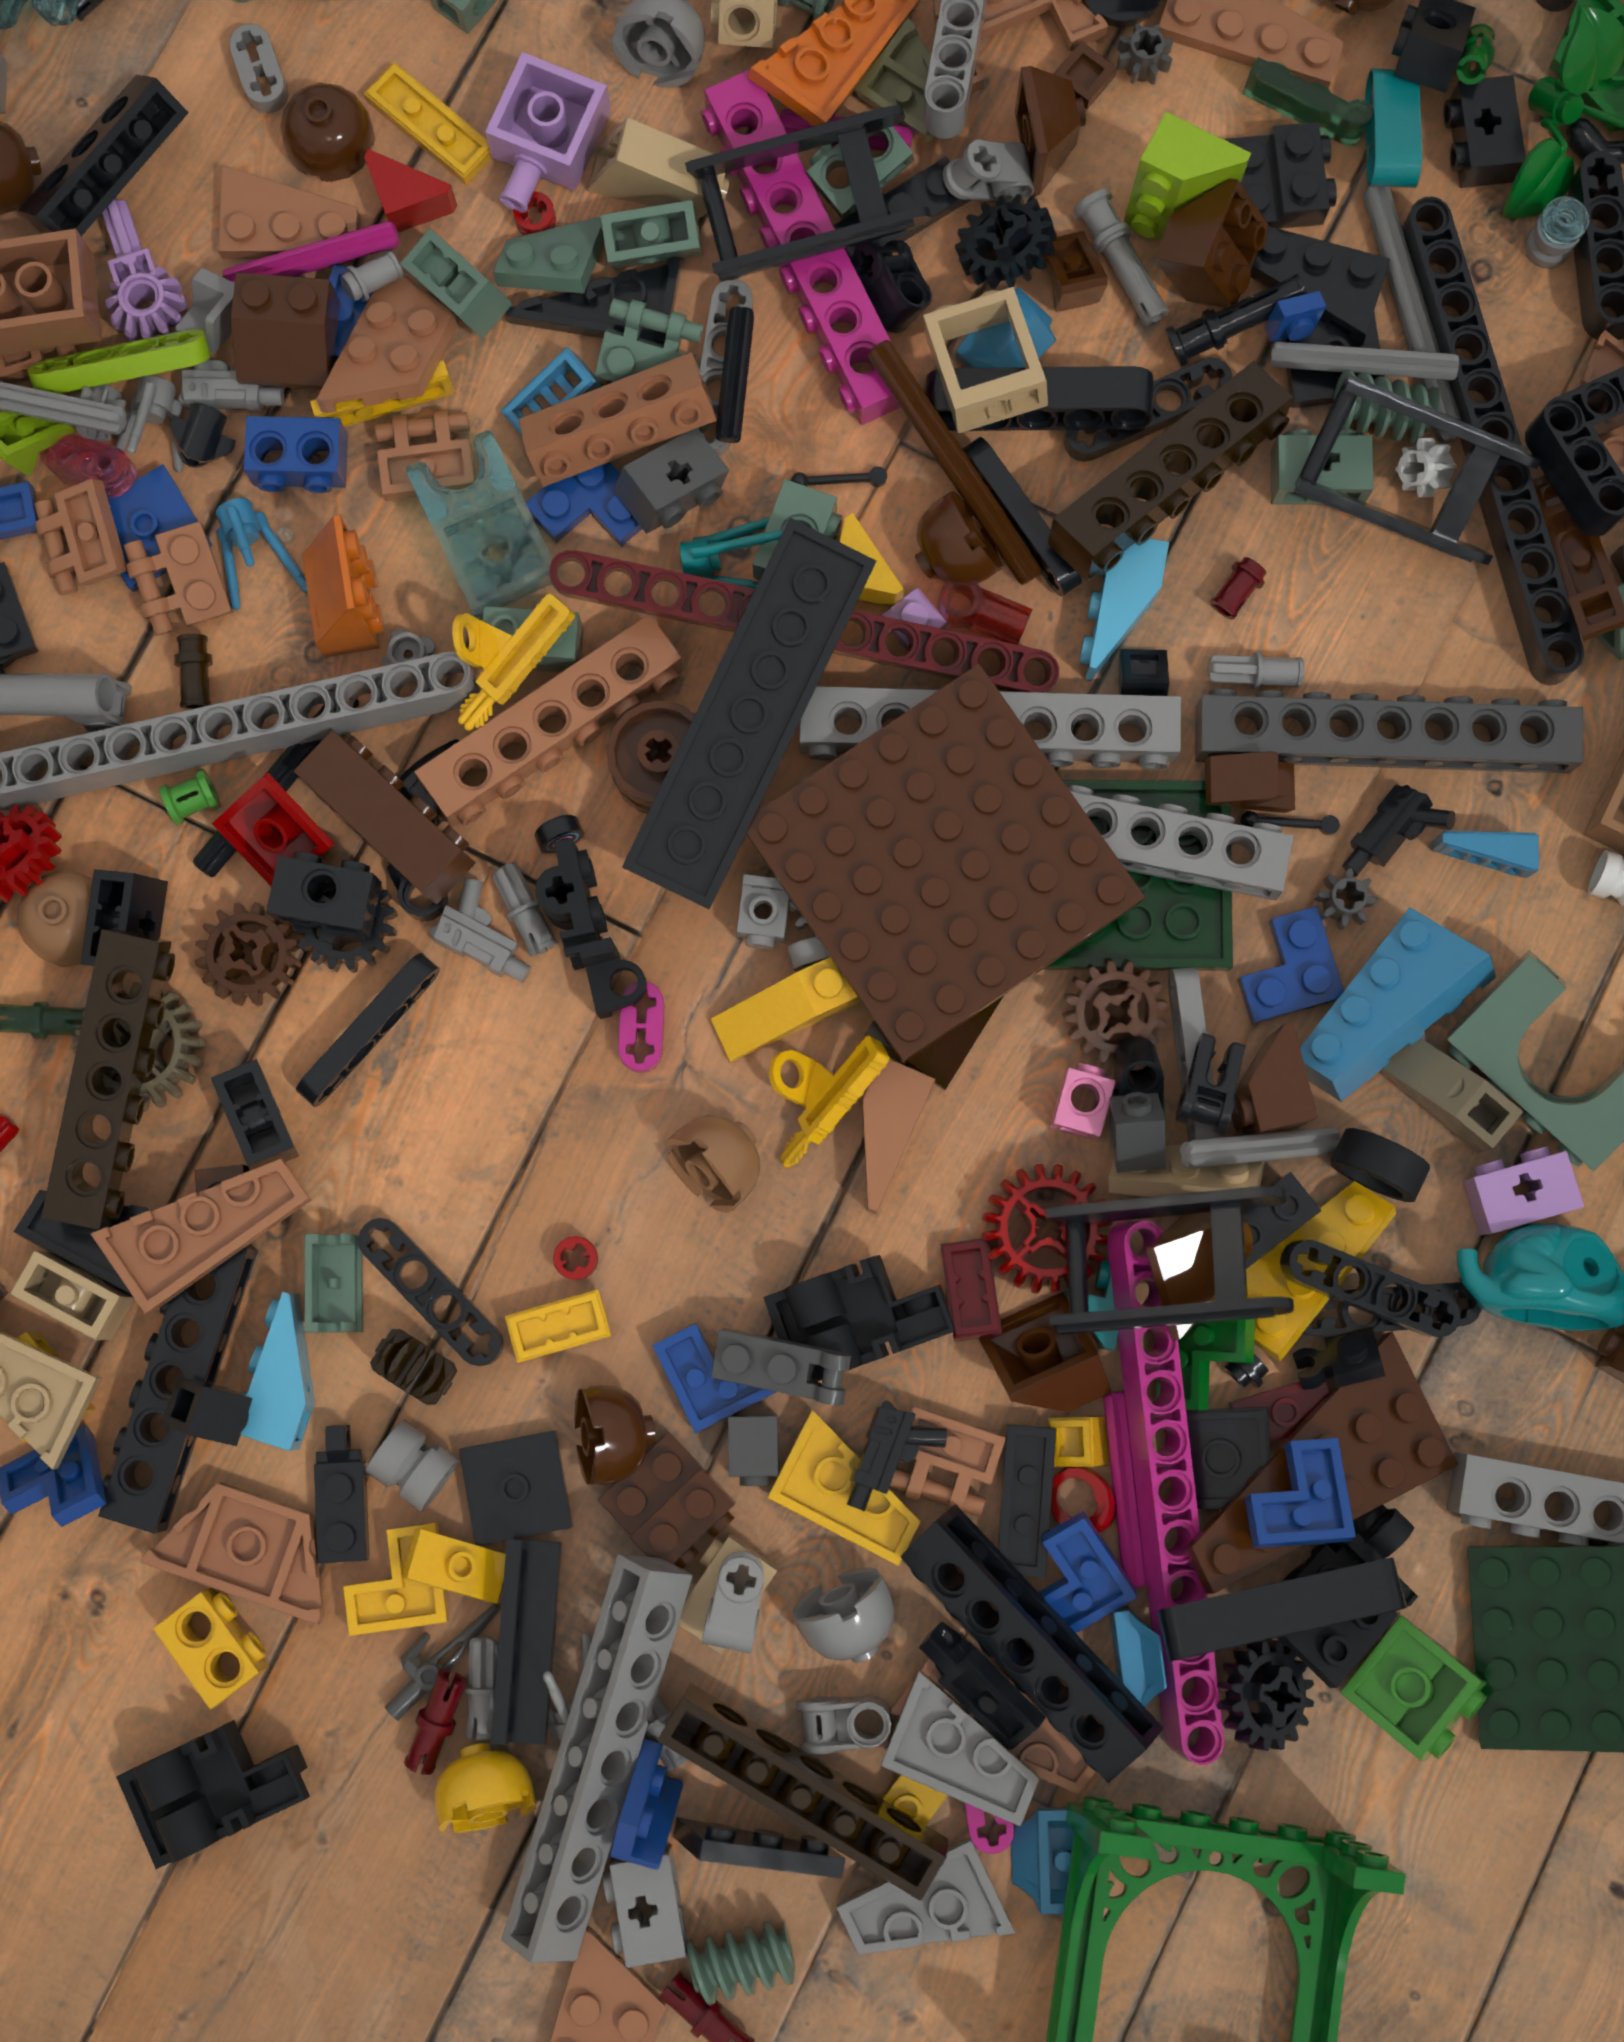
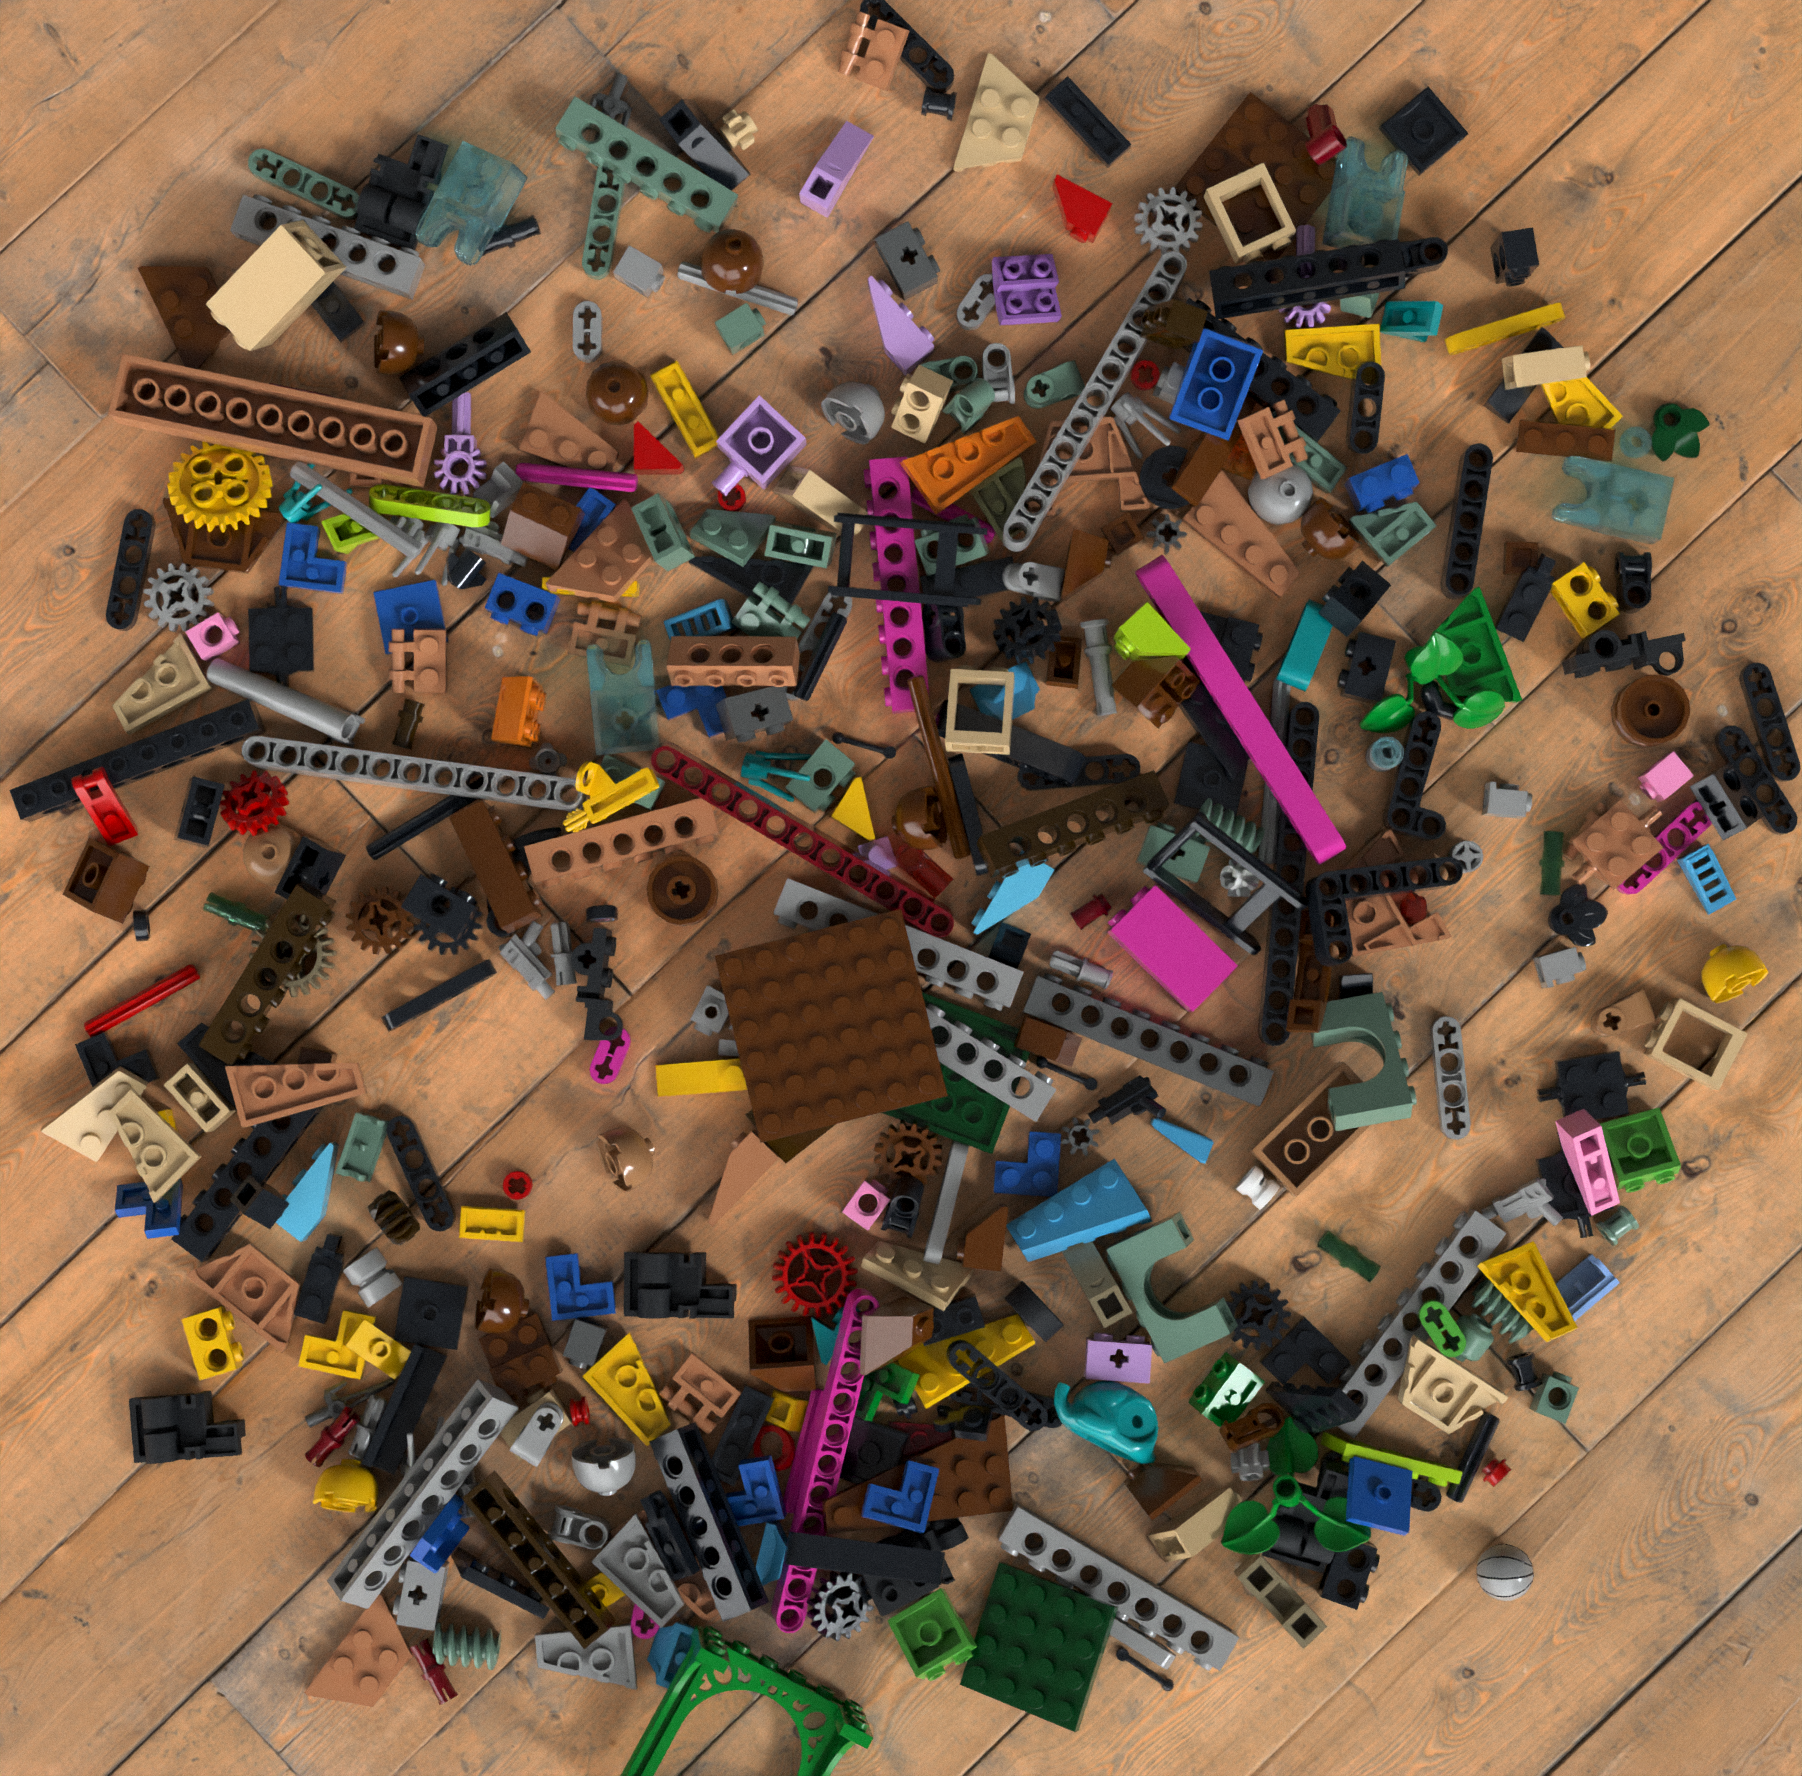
camera: 15 degrees right, 5 degrees up
(89, 462) = (387, 563): clear pink plate -> none
(89, 532) = (373, 611): nougat plate -> none
(179, 809) = (387, 803): bright green bush -> none
(241, 529) = (469, 639): dark azure plant -> none
(254, 1115) = (349, 1026): black brick -> none
(270, 825) = (423, 847): red slope -> none
(371, 276) = (610, 507): light grey pin -> none
(749, 714) = (744, 890): black plate -> none
(780, 1365) = (618, 1300): dark grey plate -> none
(782, 1550) = (579, 1411): none -> red bush
(823, 1093) = (708, 1140): yellow piece -> none
(889, 1439) = (668, 1369): black piece -> none
(971, 1289) = (754, 1294): dark red plate -> none
(1137, 1132) = (890, 1237): dark grey brick -> none
(1201, 1099) = (935, 1226): black piece -> none
(1216, 327) = (1141, 737): black pin -> none
(1228, 1260) = (908, 1337): black piece -> none
(1259, 1147) = (963, 1275): light grey axle -> none
(1295, 317) = (1191, 752): blue plate -> none
(1307, 102) = (1260, 606): clear green plate -> none
(1362, 244) = (1241, 710): none -> dark pink beam
(1365, 360) = (1225, 795): light grey axle -> none
(1372, 589) = (1170, 947): none -> dark pink brick
(1482, 55) = (1385, 608): green pin -> none

